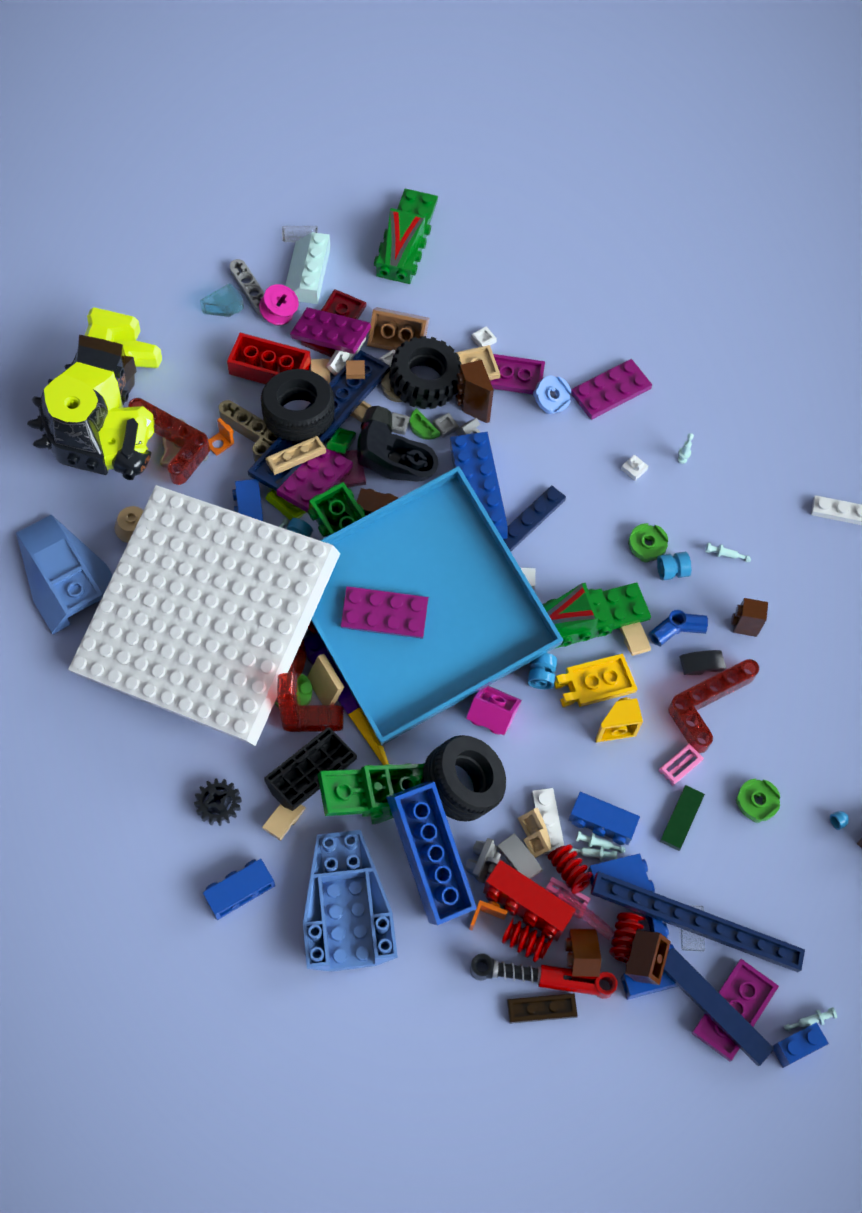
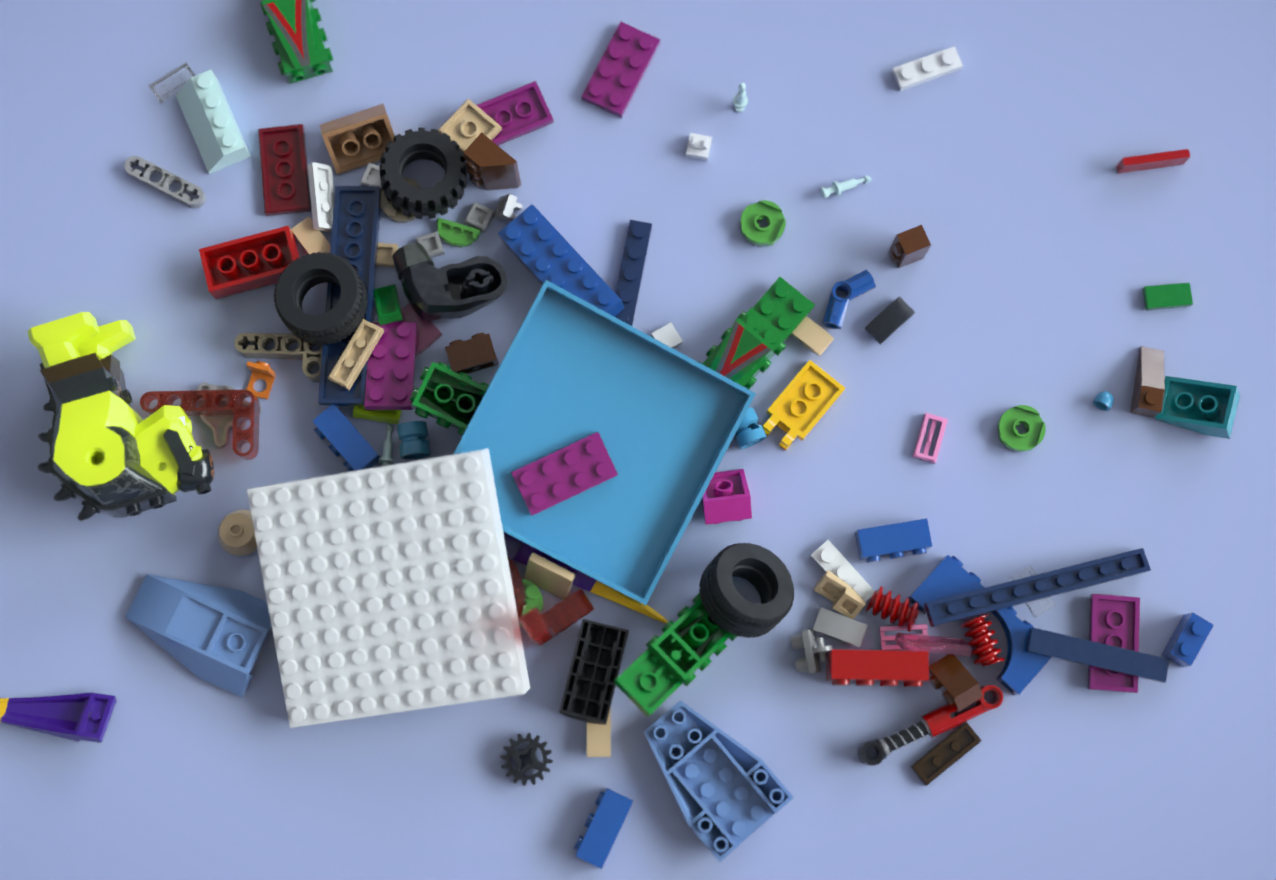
camera: 30 degrees left, 15 degrees up
(223, 302) = (150, 219): clear light blue slope -> none
(273, 313) = (225, 184): dark pink piece -> none
(330, 330) = (290, 184): magenta plate -> none
(355, 369) = (348, 214): medium nougat tile -> none
(431, 853) = (764, 683): blue brick -> none
(483, 337) = (453, 90): white tile -> none
(491, 908) = (843, 692): orange bracket -> none
(526, 940) = (896, 702): red piece -> none
(543, 397) = (557, 121): light blue plate -> none
(592, 840) = (895, 567): light aqua piece -> none
(596, 853) = (905, 577): light aqua piece -> none
(621, 722) = (852, 432): yellow slope -> none
(647, 957) = (1016, 653): reddish brown brick -> none
(677, 565) = (806, 232): dark azure wheel -> none
(682, 817) = (962, 490): dark green tile -> none
(708, 696) = (914, 353): clear red beam -> none
(809, 1020) = (1184, 607): light aqua piece -> none

